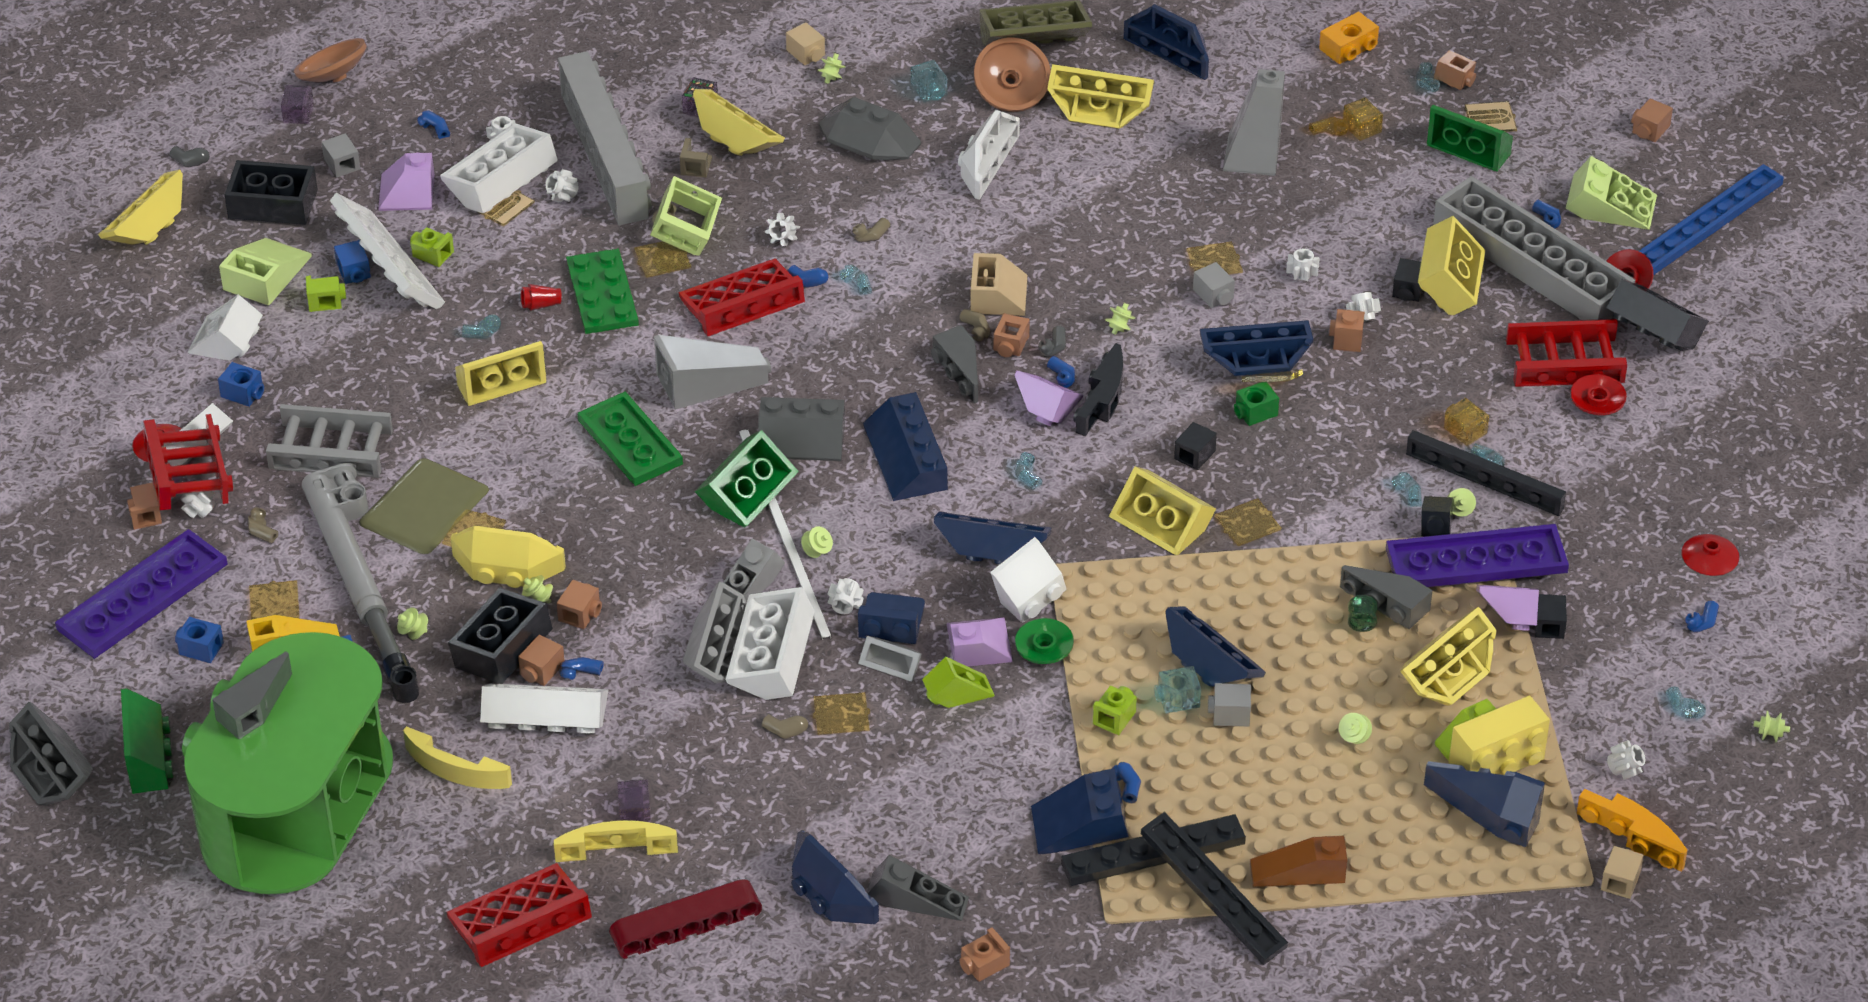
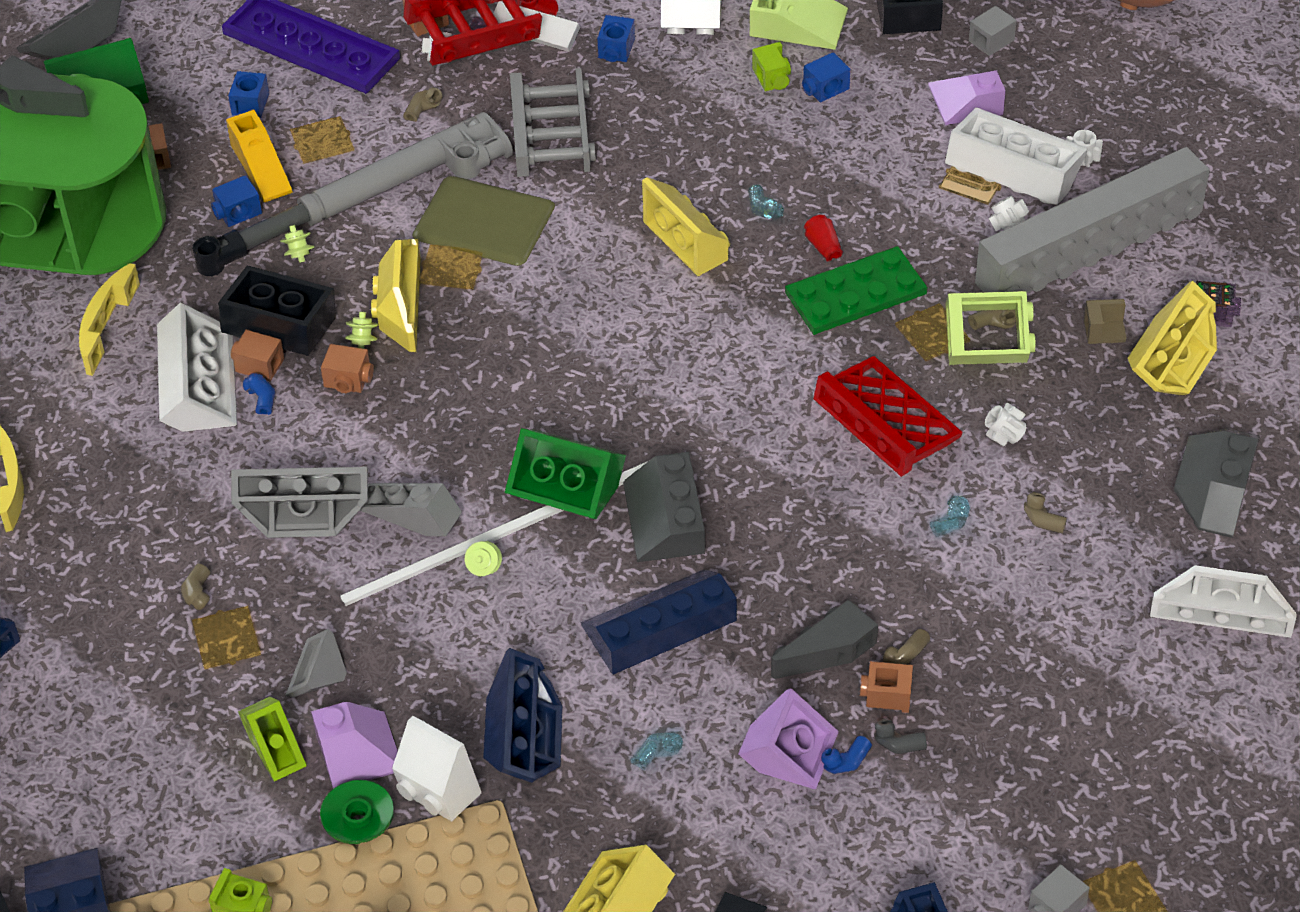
camera: 80 degrees right, 5 degrees up
(386, 252) = (841, 95): white plate -> none
(432, 246) = (876, 127): lime brick -> none
(439, 123) = (1084, 96): blue arm -> none
(630, 438) = (617, 361): green plate -> none
(634, 800) = (60, 474): clear purple brick -> none
(706, 369) = (729, 395): light grey slope -> none
(771, 643) = (305, 545): white slope -> none
(810, 277) = (938, 470): blue arm -> none
(845, 596) = (397, 600): white gear -> none
(891, 617) = (374, 652): dark blue bracket -> none
(997, 286) = (971, 654): tan slope -> none
(1104, 393) = (830, 807): black slope -> none
(1120, 318) = (959, 800): yellowish green wheel -> none

